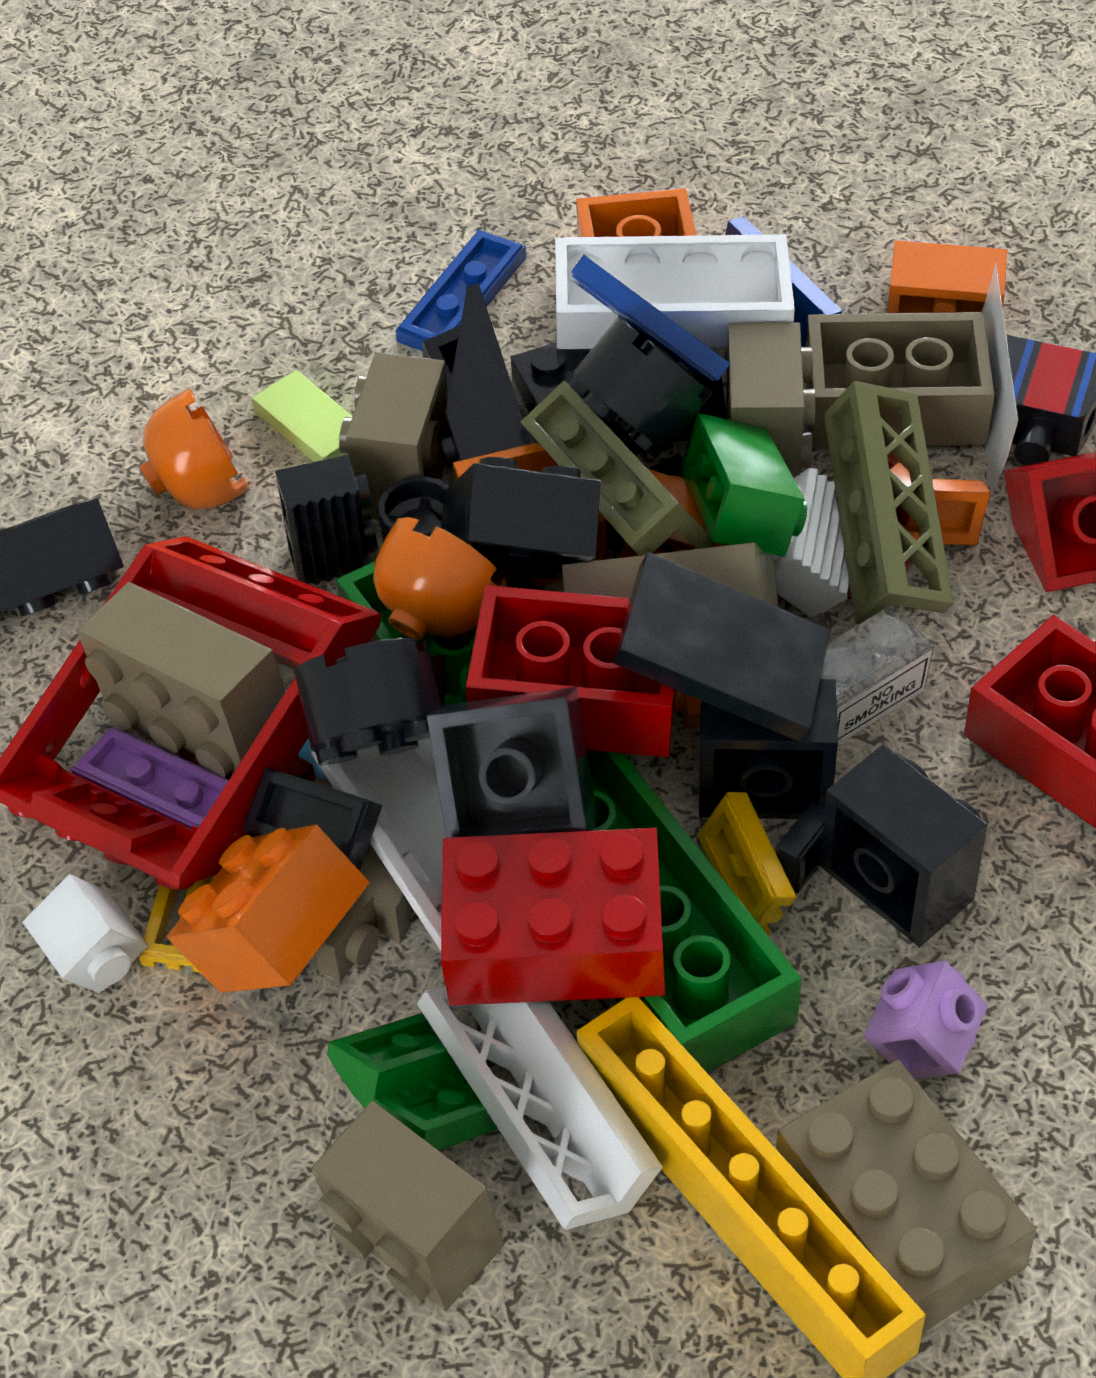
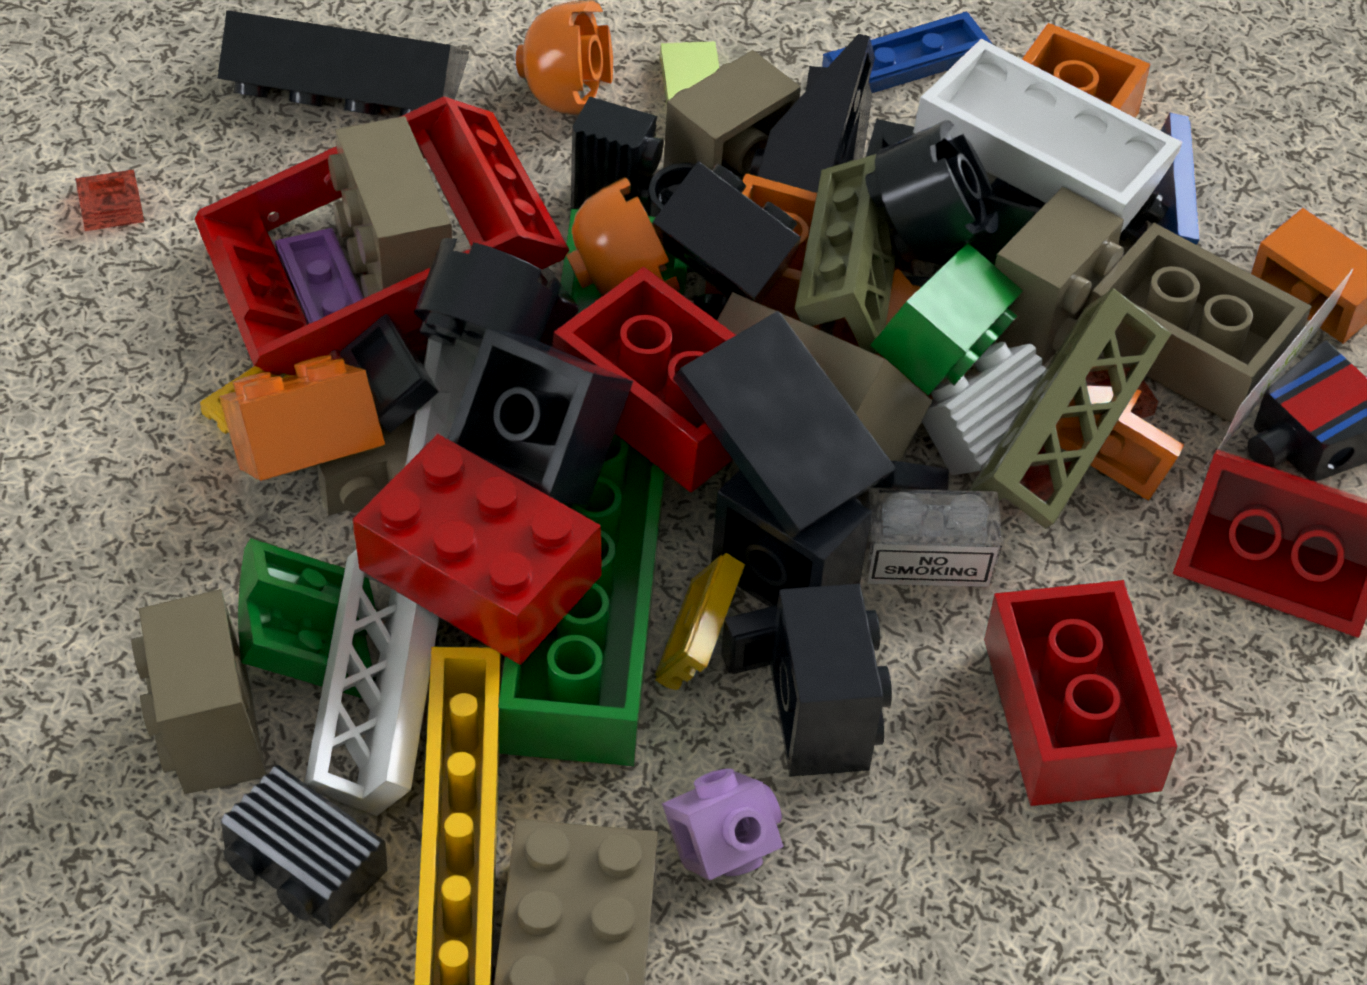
camera: 30 degrees right, 0 degrees up
(85, 934) = (170, 360): white brick -> none
(604, 1284) = (302, 848): none -> black brick
(648, 320) = (984, 142): blue tile -> none

